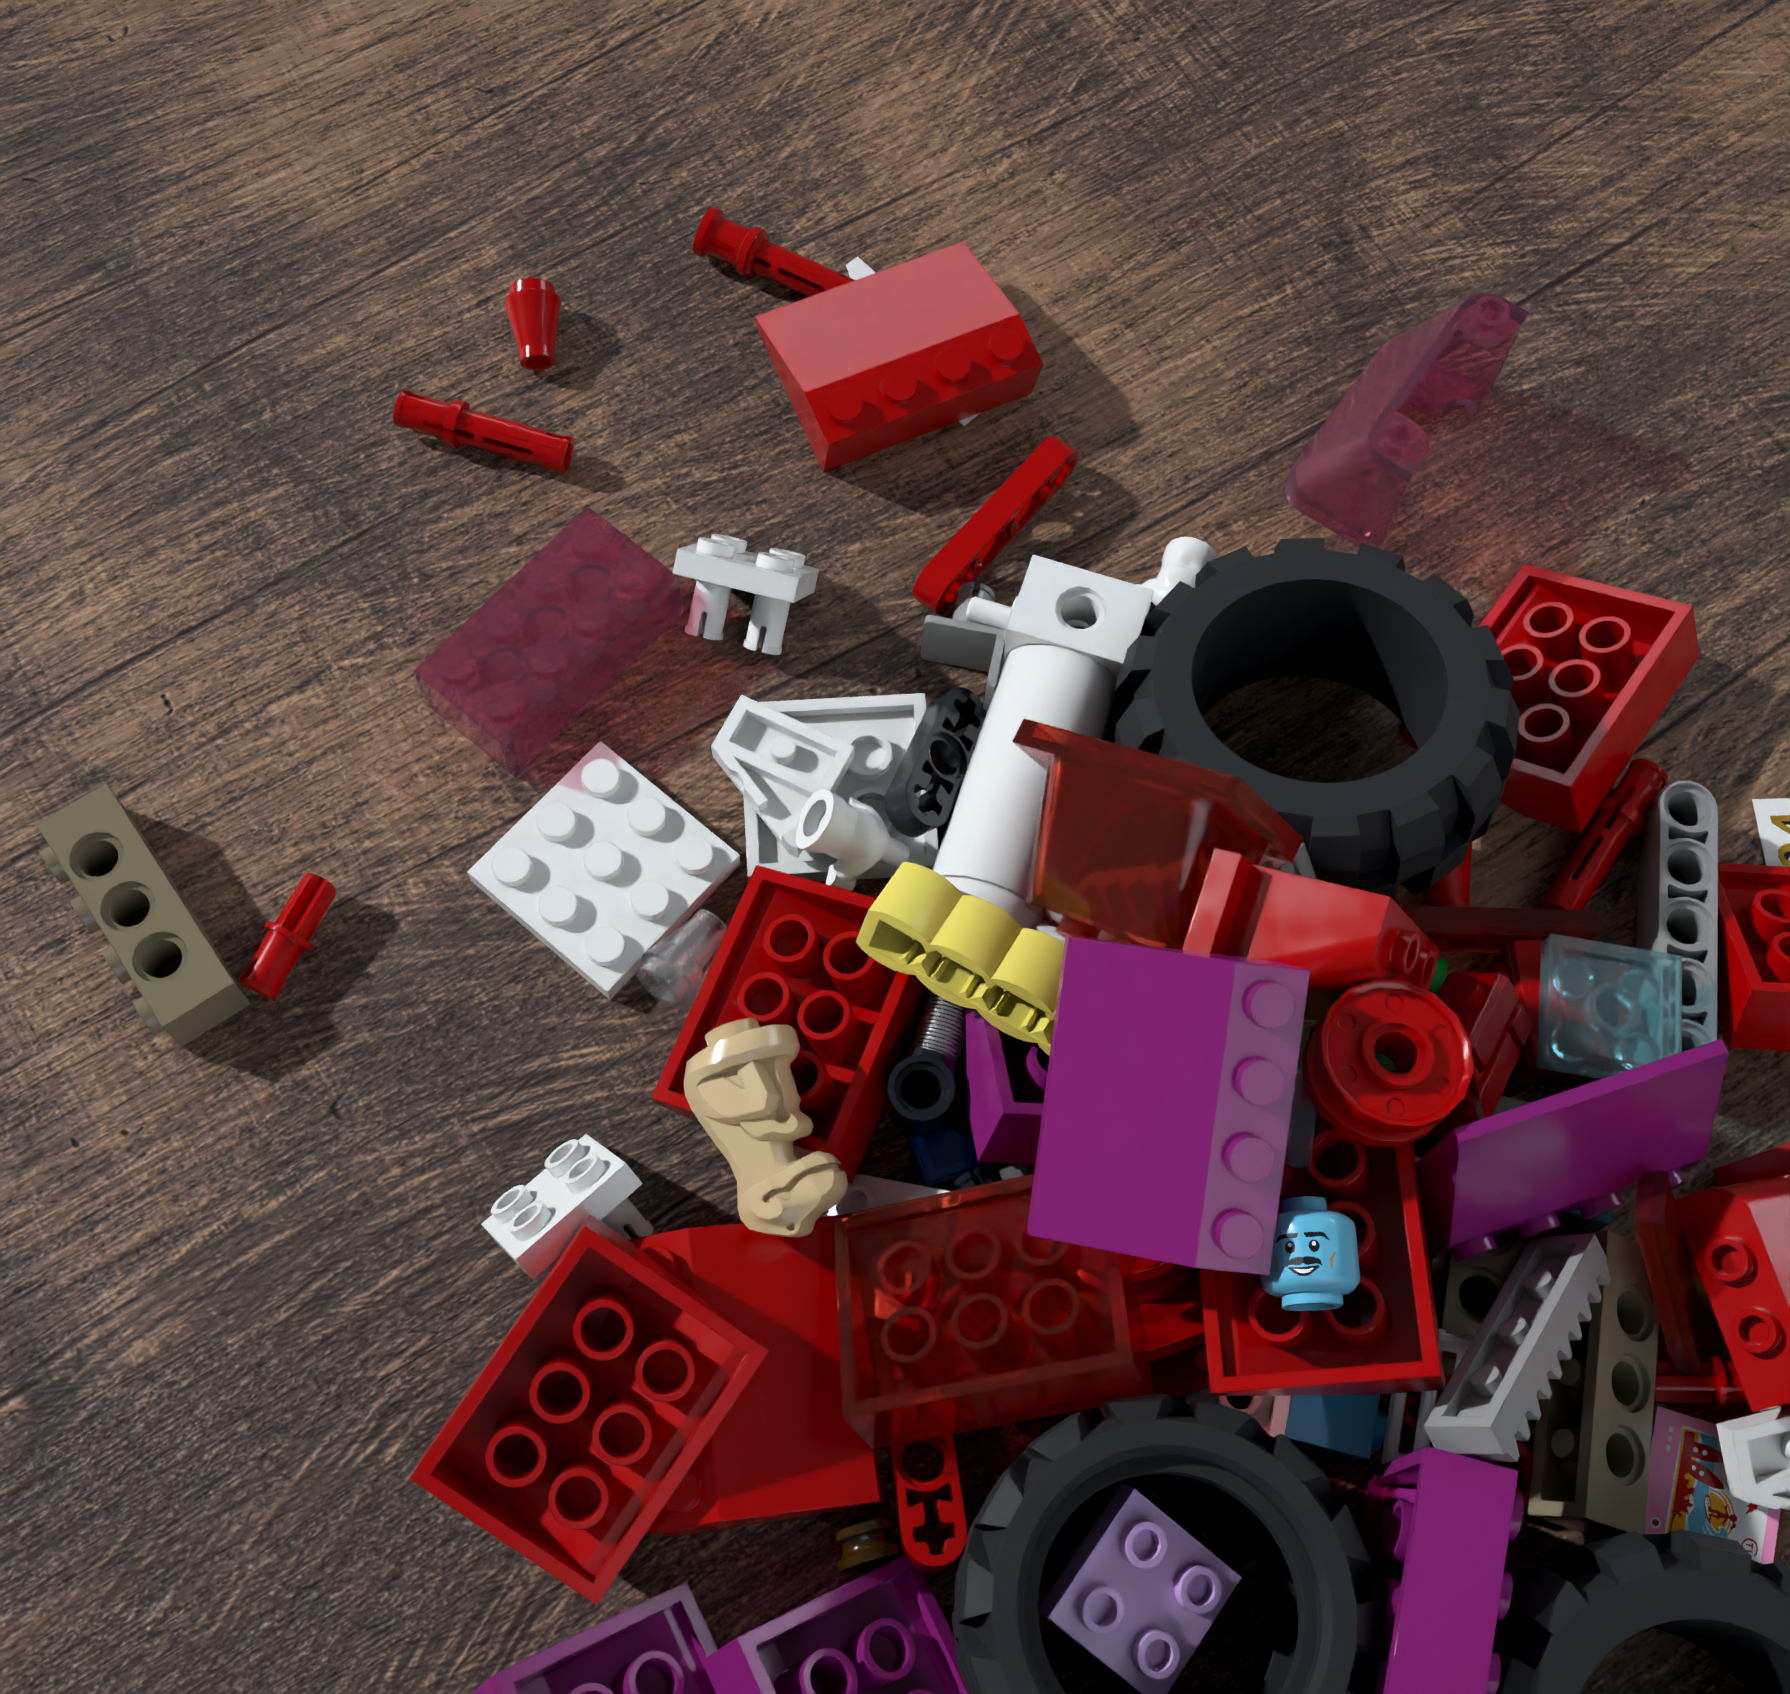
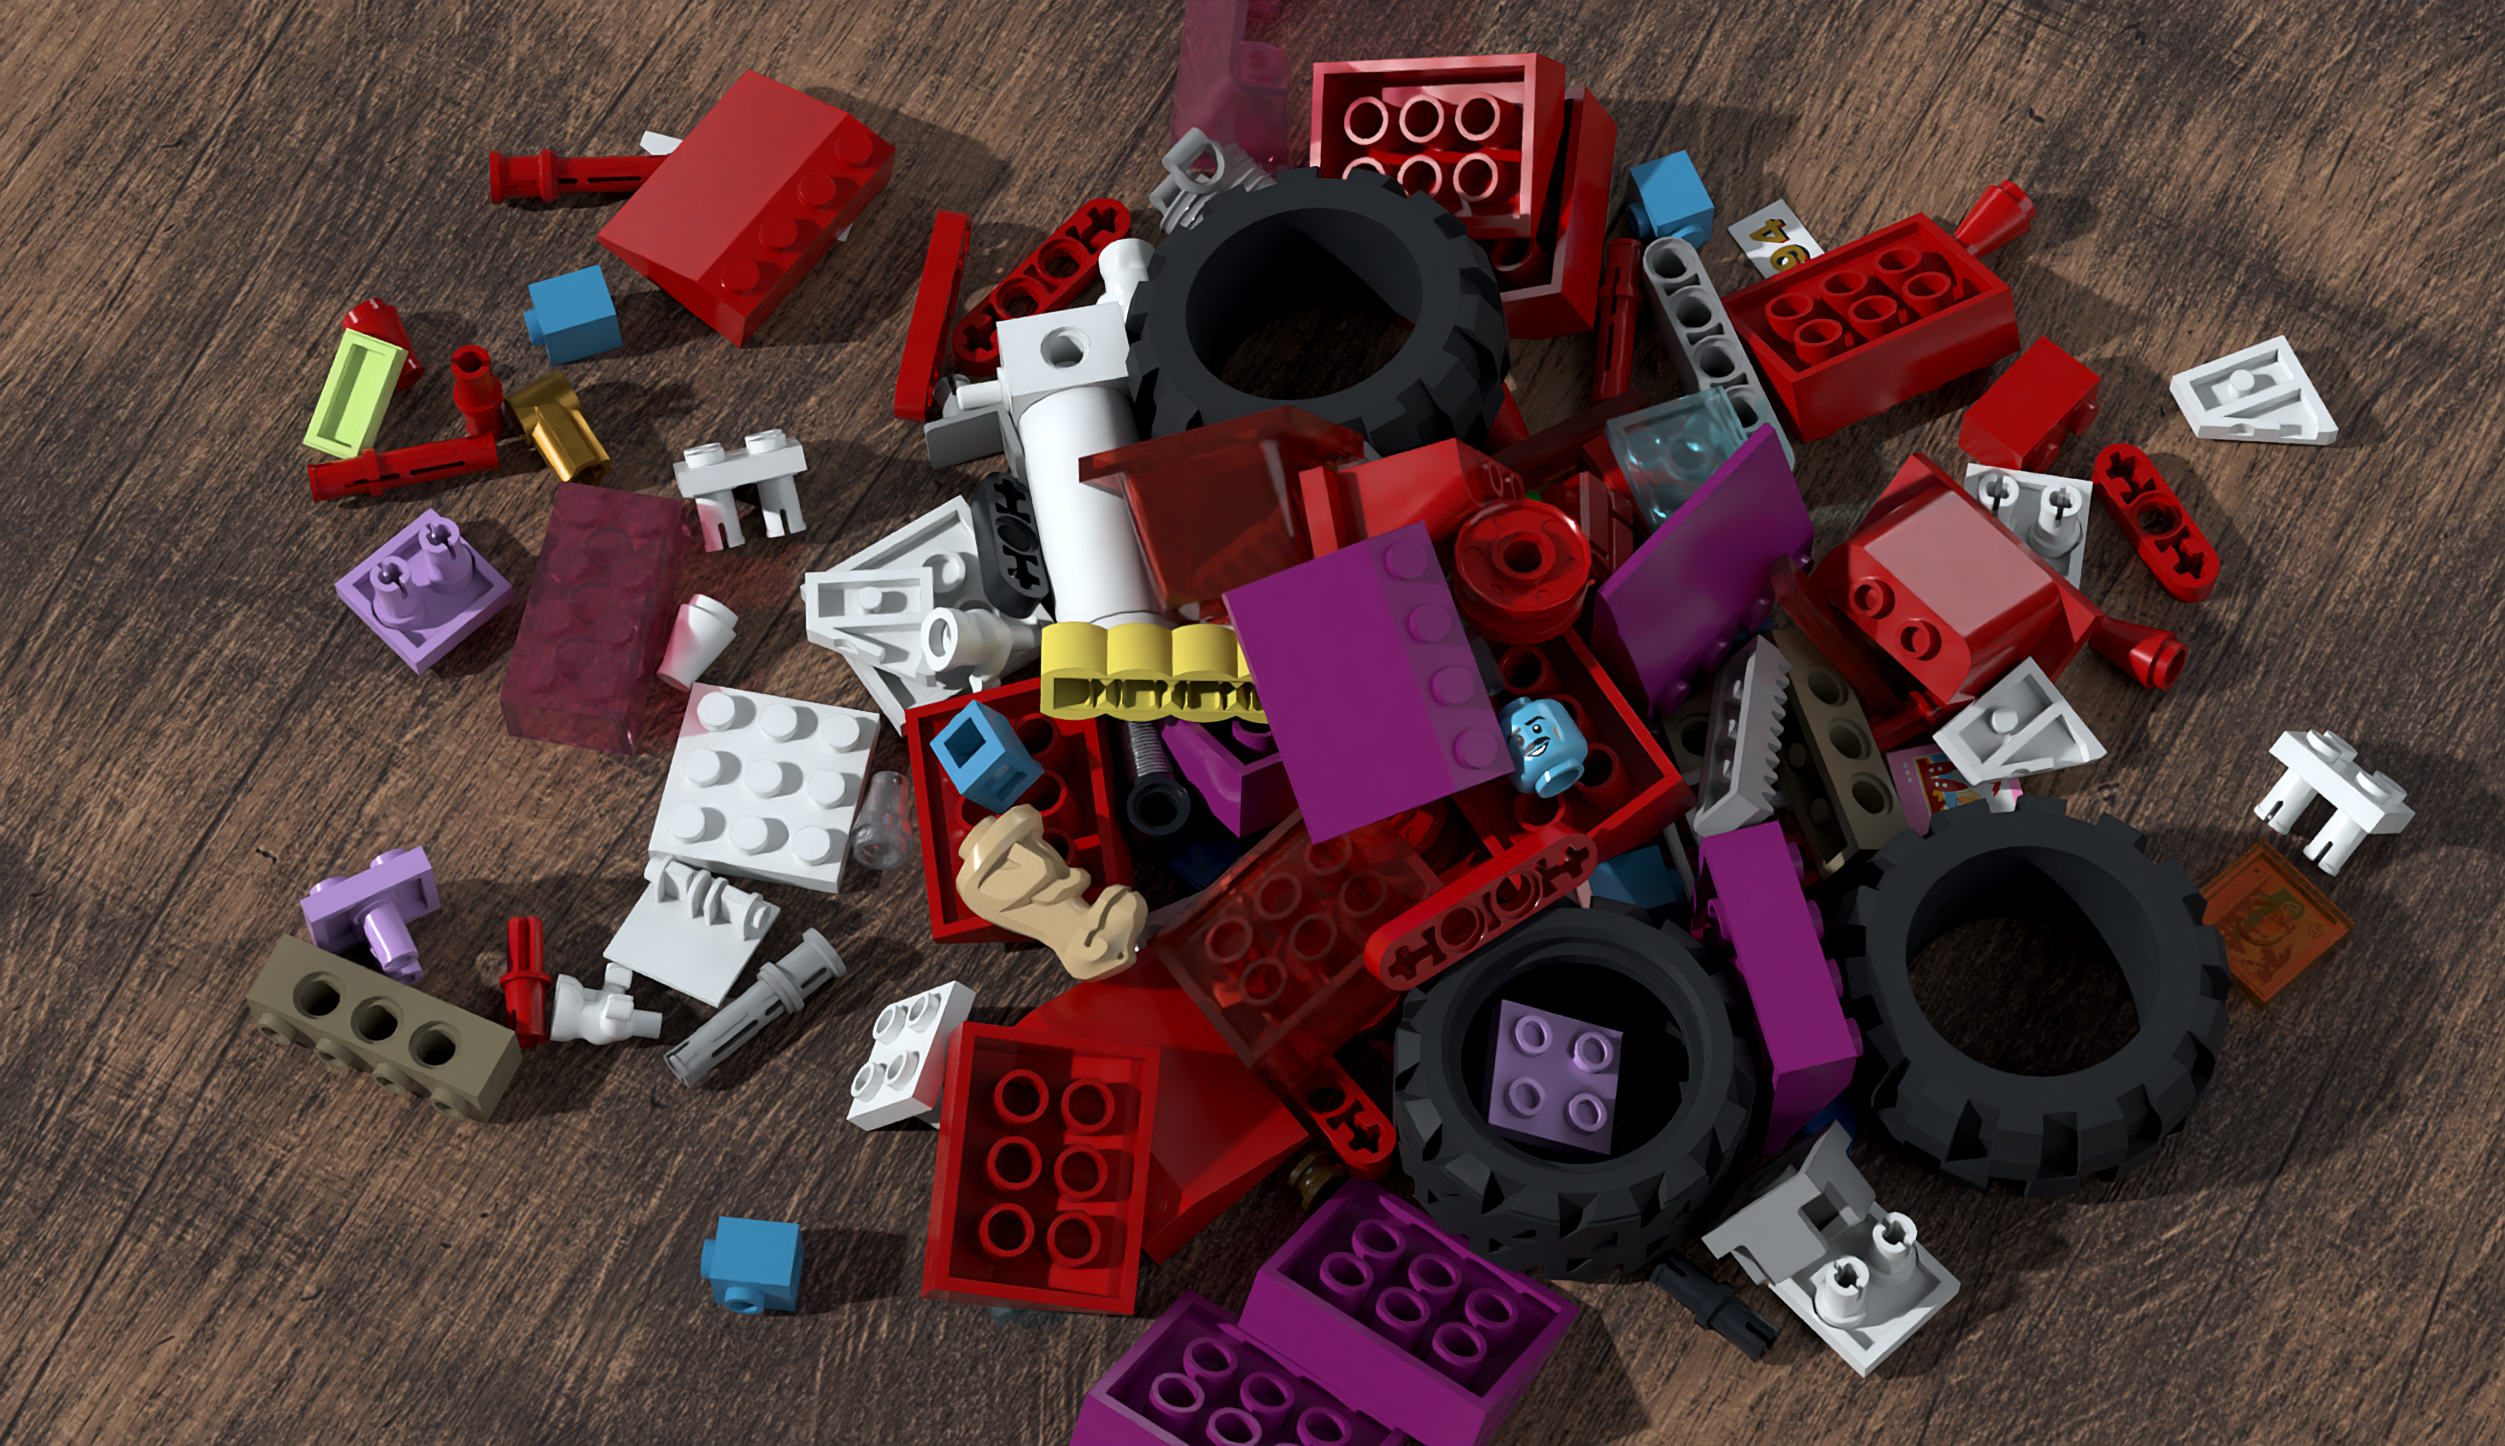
camera: 25 degrees left, 5 degrees down
(190, 808) = (374, 911): none -> lavender plate
(304, 1327) = (754, 1264): none -> dark azure brick
(328, 1001) = (600, 1014): none -> white piece
(431, 545) = (425, 590): none -> lavender plate
(456, 968) = (691, 930): none -> white hinge
(481, 352) = (355, 395): none -> yellowish green tile
(493, 1067) = (777, 991): none -> light grey pin
(571, 396) = (477, 391): none -> red pin
(624, 705) = (697, 639): none -> white cone
(625, 455) = (553, 421): none -> pearl gold piece
(697, 375) = (573, 316): none -> dark azure brick
(787, 955) = (985, 757): none -> dark azure brick
(1101, 538) = (1034, 281): none -> red beam
(1158, 1386) = (1483, 914): none -> red beam
(1277, 521) = (1185, 192): none -> light grey piece
(1549, 584) = (1457, 127): none -> red slope
(1713, 749) = (1668, 201): none -> dark azure brick

